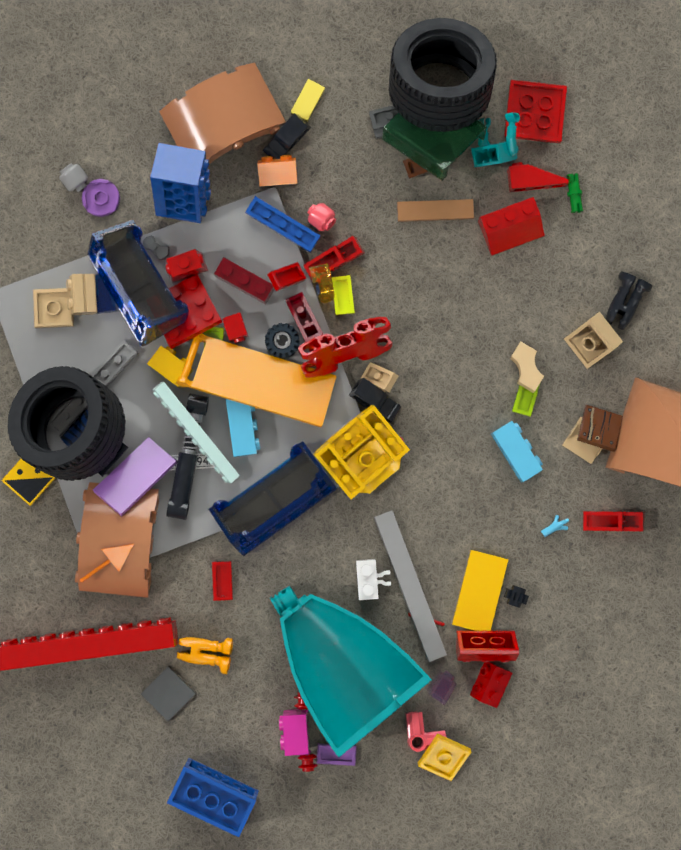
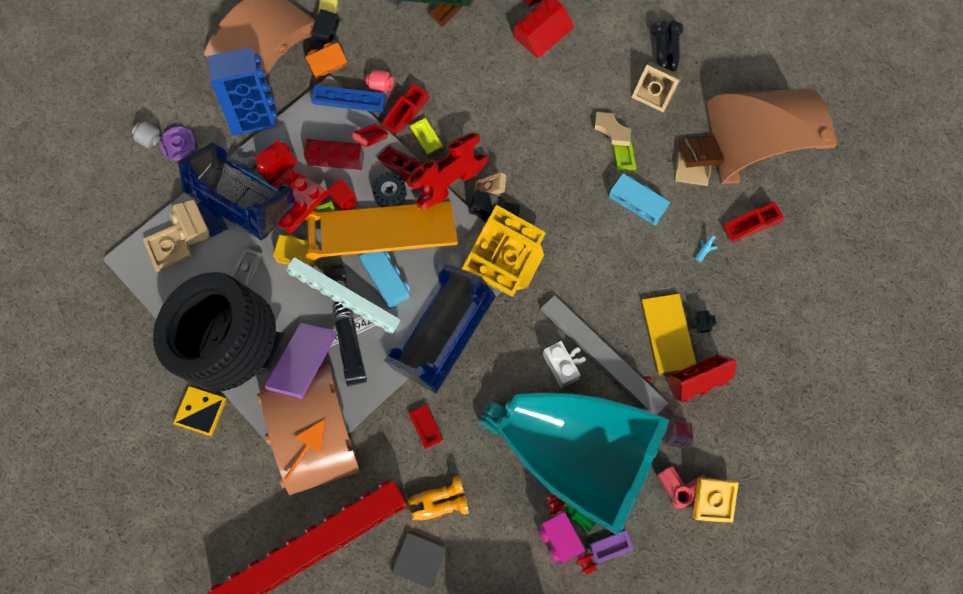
camera: 20 degrees left, 15 degrees down
(324, 287) = (405, 128): clear yellow leg -> none
(435, 210) = (474, 42): medium nougat tile -> none
(490, 684) = (721, 412): red bracket -> none

